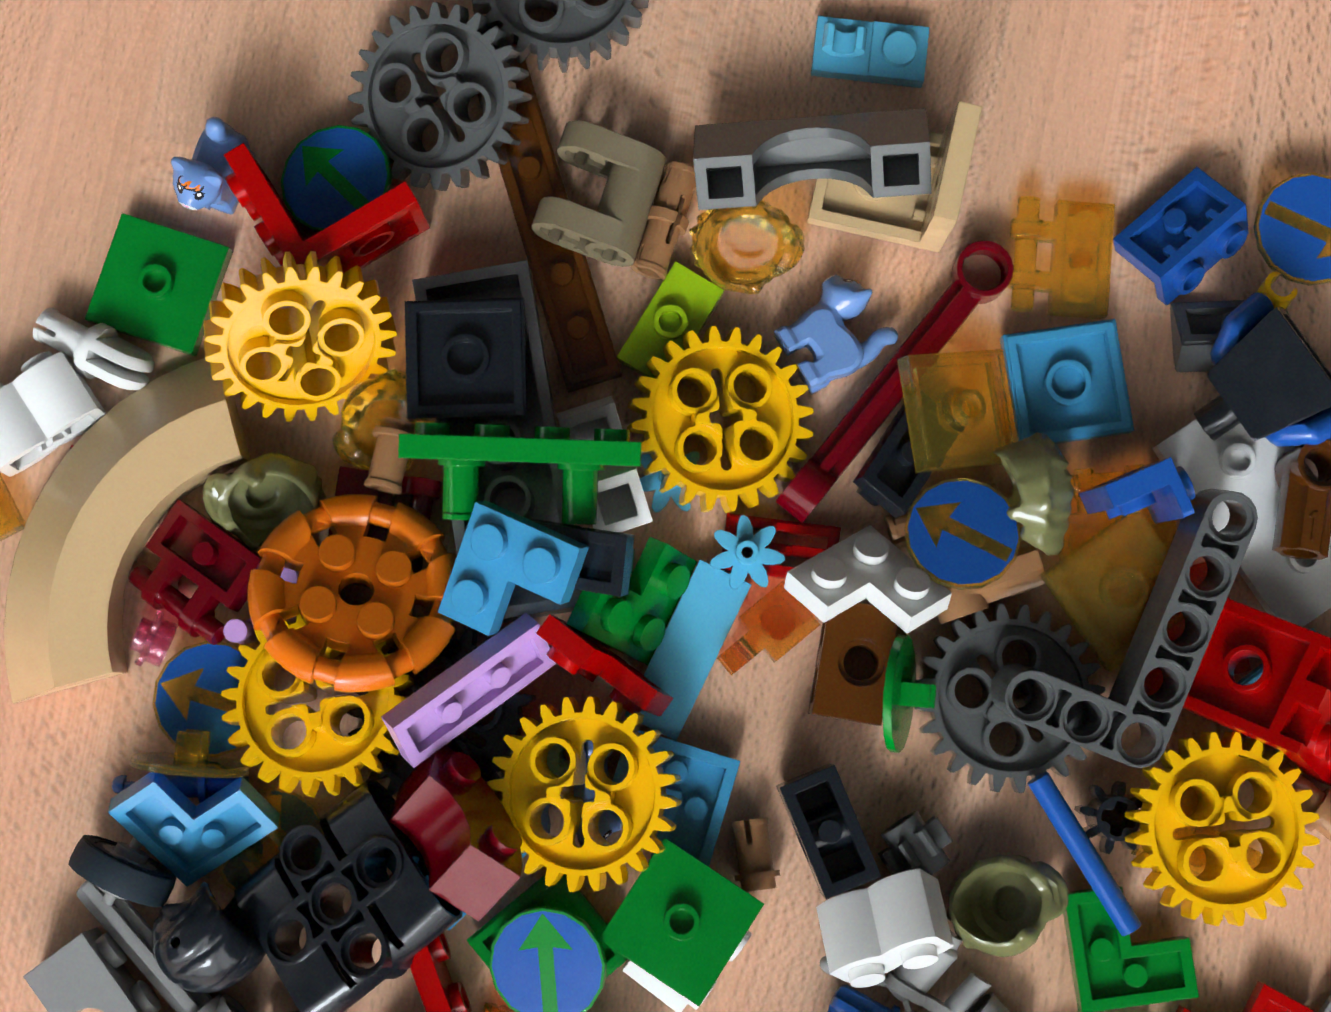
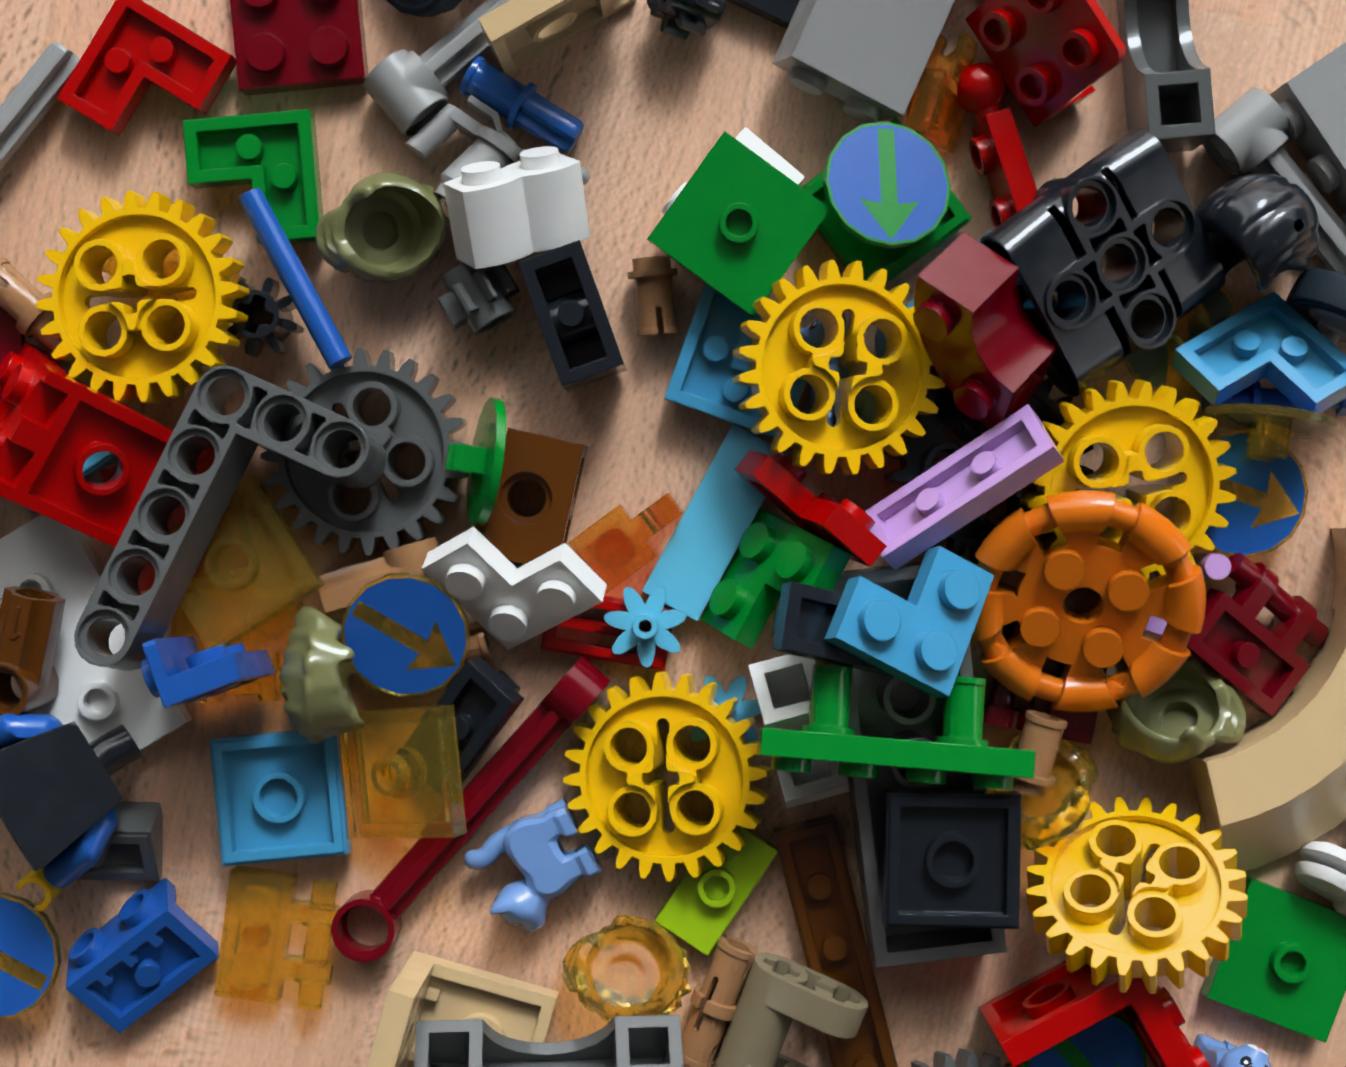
camera: 175 degrees left, 5 degrees up
(152, 639) = (1305, 562): clear pink plate -> none

